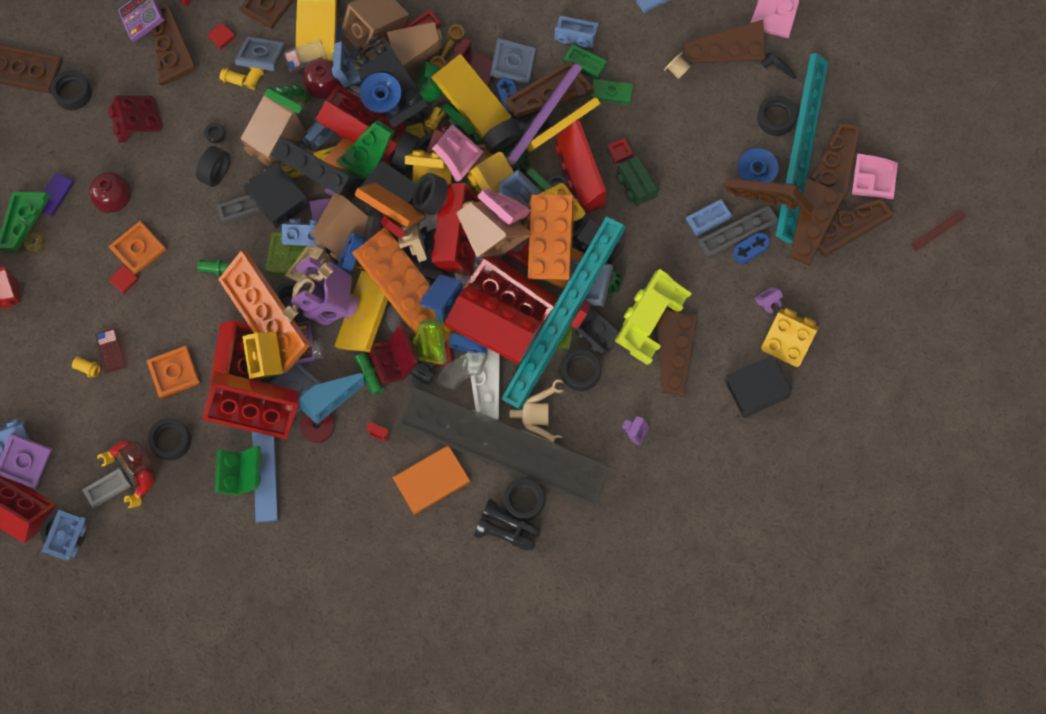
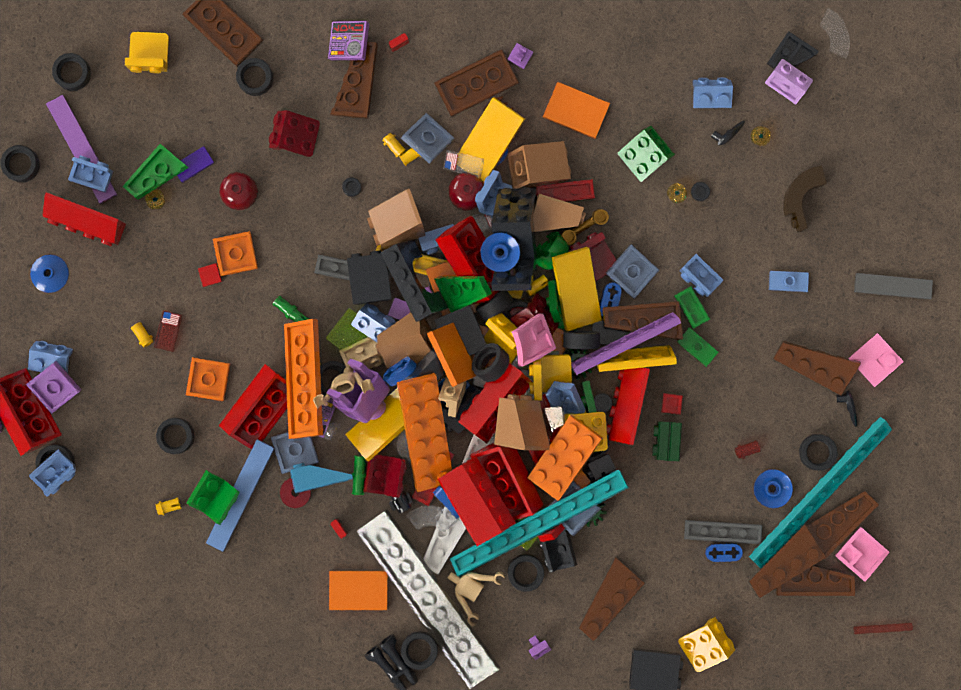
camera: 25 degrees right, 15 degrees up
(106, 487) = (107, 445): light grey tile -> none
(135, 466) = (136, 443): torso -> none
(198, 508) = (168, 506): none -> yellow pin
(213, 166) = (332, 221): black tyre -> none
(221, 36) = (405, 98): red tile -> none
(250, 405) = (250, 453): red slope -> none
(262, 355) = (281, 419): yellow slope -> none
(289, 96) = (427, 202): green wing -> none
(392, 226) = (442, 379): red tile -> none
(430, 342) = (417, 488): clear neon green wing -> none
(442, 296) = (450, 455): blue panel -> none
(505, 207) = (540, 415): bright pink plate -> none
(646, 312) = (604, 561): neon yellow bracket -> none
(678, 66) = (765, 359): tan piece -> none
(708, 217) = (706, 506): medium blue plate -> none
(709, 153) = (747, 449): none -> clear red pin
(768, 297) = (710, 603): medium lavender tile -> none
(769, 193) = (766, 524): reddish brown wing -> none

